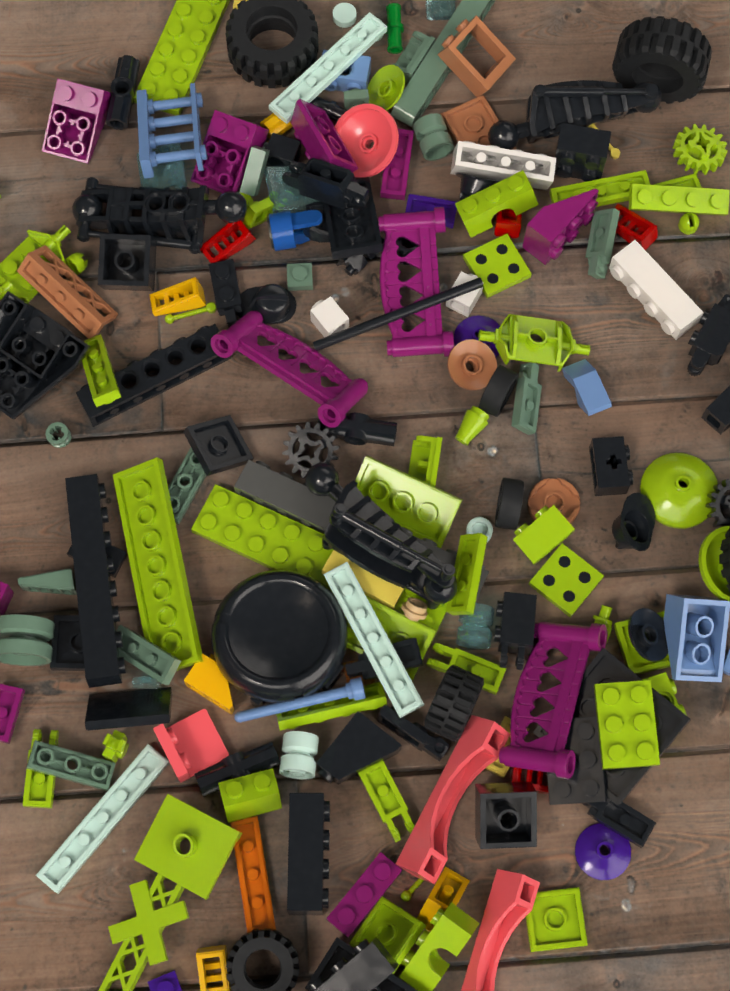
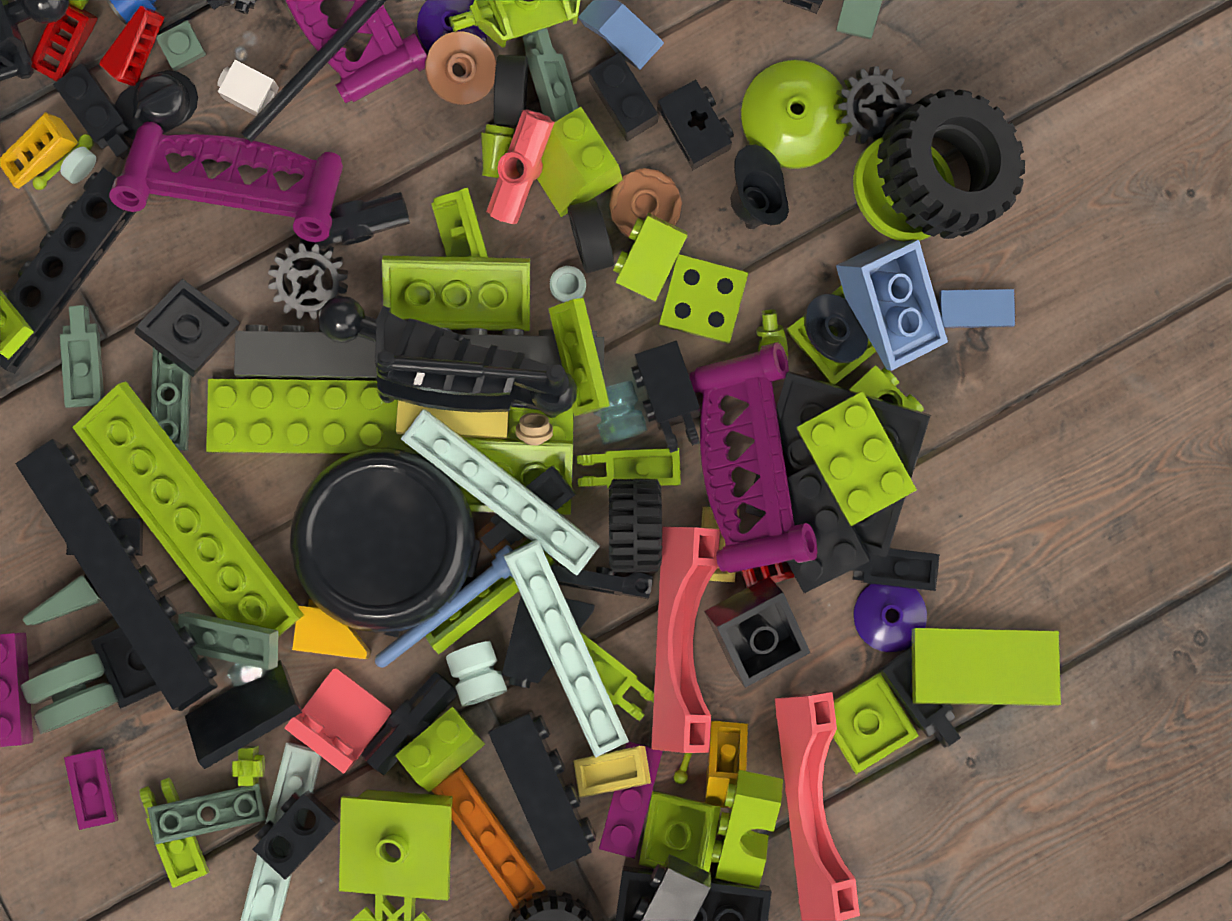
camera: 20 degrees left, 15 degrees up
(126, 813) = (301, 839): none -> black brick
(139, 436) = (81, 360): none -> sand green hinge
(199, 317) = (78, 165): none -> light aqua tile
(270, 262) = (132, 47): none -> red slope
(360, 867) = (612, 771): none -> light yellow tile
(368, 765) = (566, 648): none -> light aqua tile
(494, 428) = (528, 146): none -> coral piece
(519, 452) = (576, 163): none -> lime slope
(570, 428) = (623, 96): none -> black brick
(601, 918) = (929, 717): none -> black hinge
(656, 917) = (985, 667): none -> lime tile

